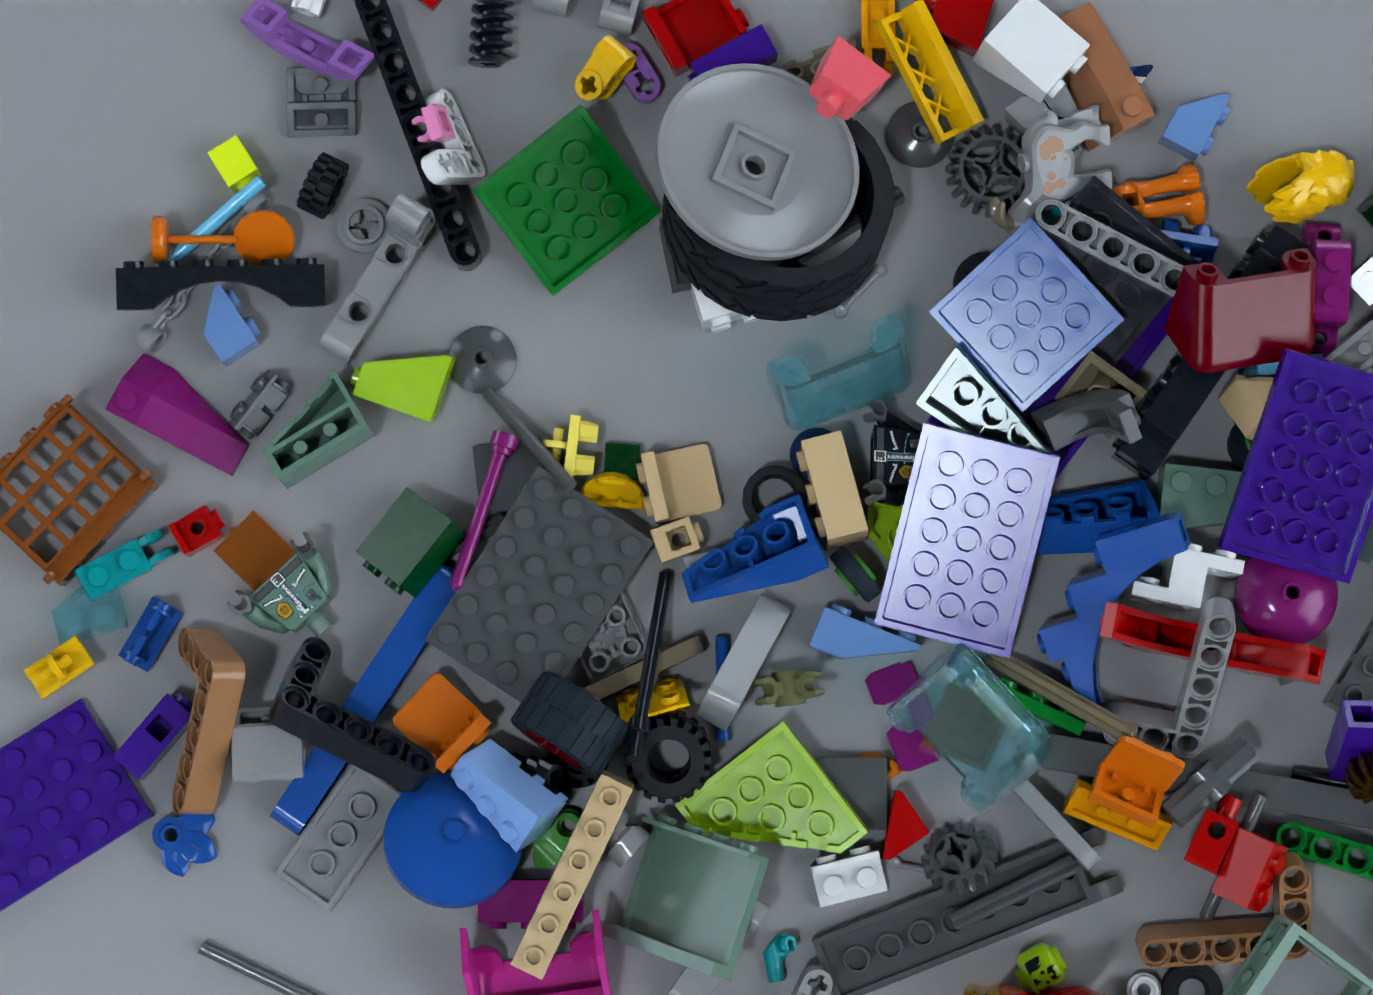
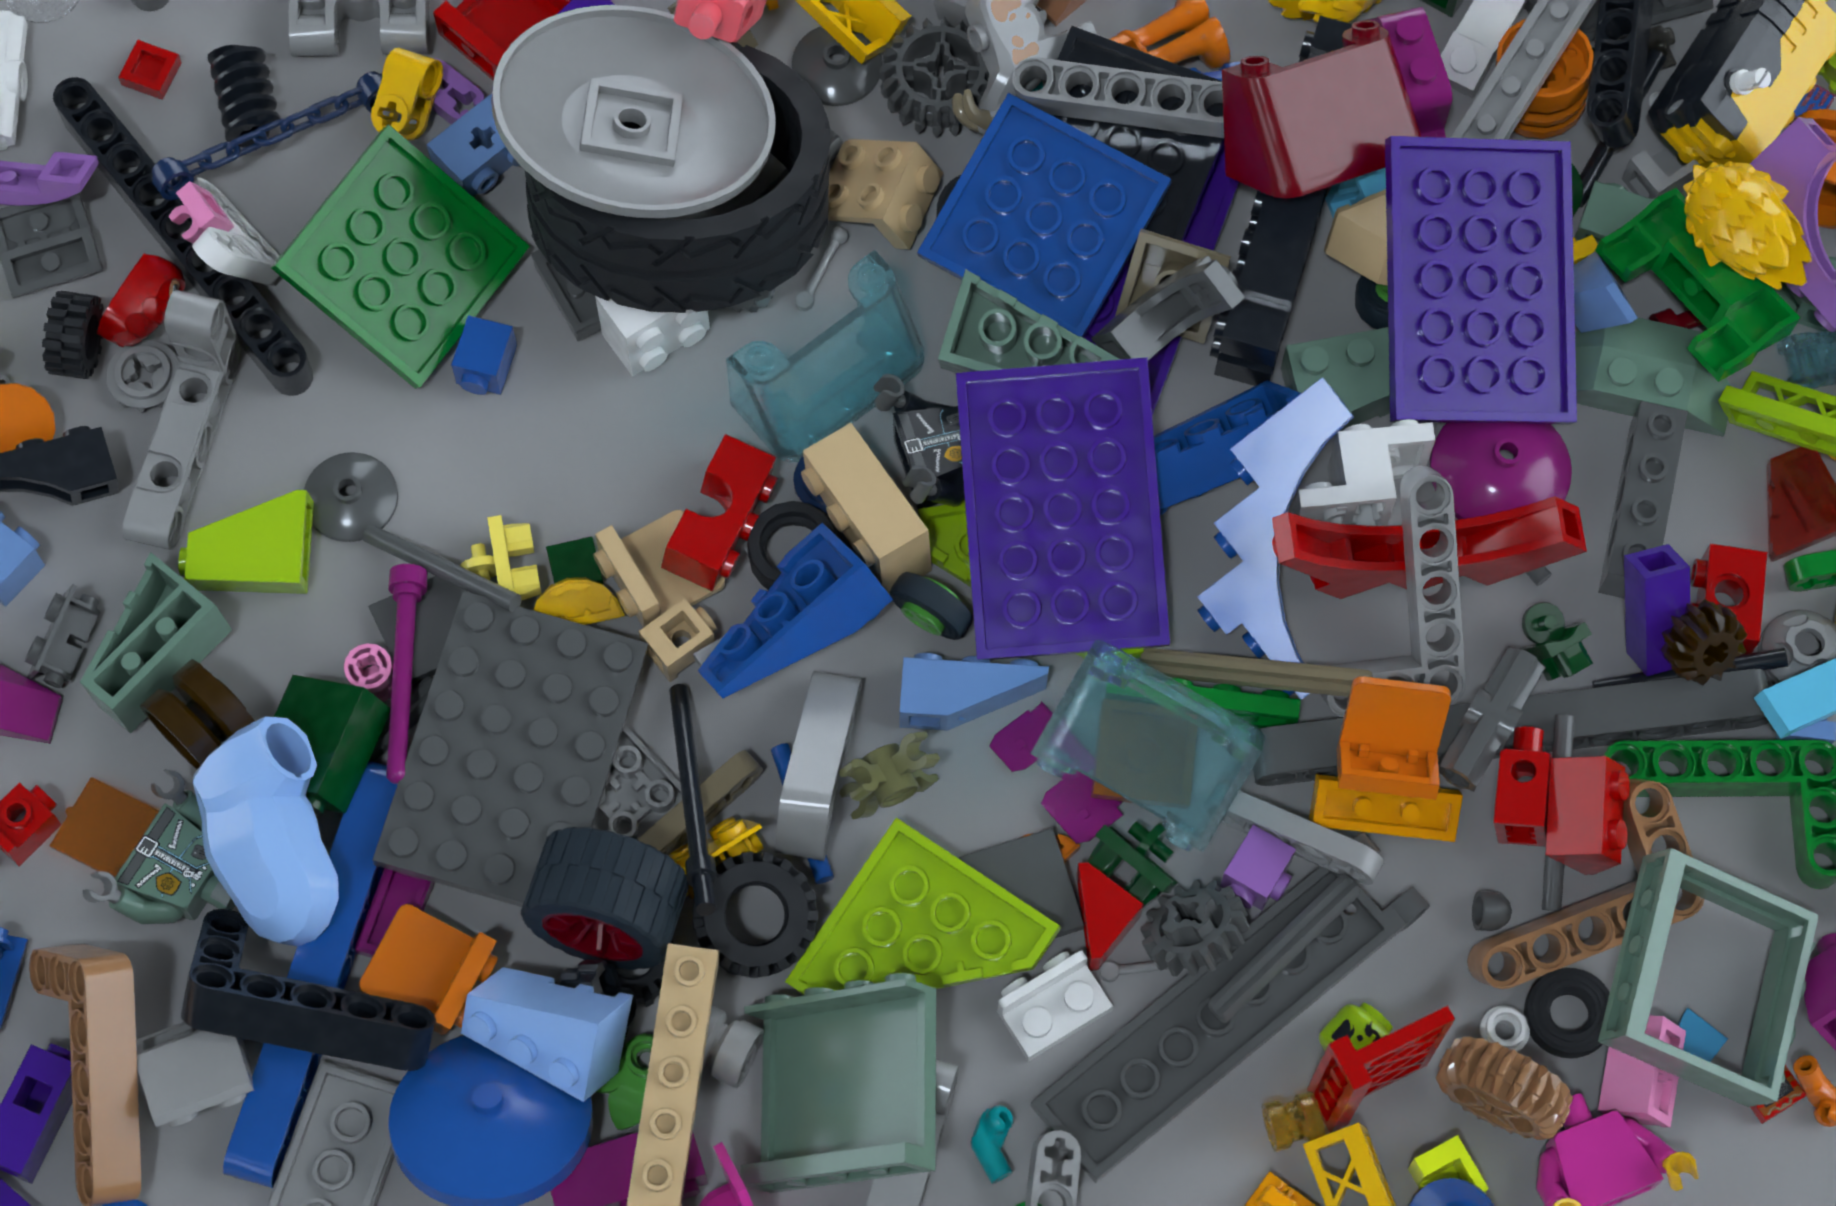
camera: 20 degrees left, 15 degrees down
(337, 502) = (209, 713): none -> dark brown wheel
(358, 602) = (265, 832): none -> light blue piece
(377, 174) = (141, 301): none -> red piece
(424, 90) = (173, 174): none -> dark blue piece
(430, 662) = (392, 892): none -> magenta tile
(462, 503) = (375, 678): none -> bright pink wheel
(603, 288) = (484, 356): none -> blue brick
(629, 124) = (472, 150): none -> medium blue brick
(753, 438) = (705, 546): none -> red arch
(922, 245) = (883, 186): none -> tan bracket
(942, 810) = (1115, 849): none -> dark green hips
(1016, 830) = (1259, 869): none -> medium lavender brick
(1163, 906) = (1490, 911): none -> dark grey hinge
(1275, 737) = (1555, 644): none -> dark green hips

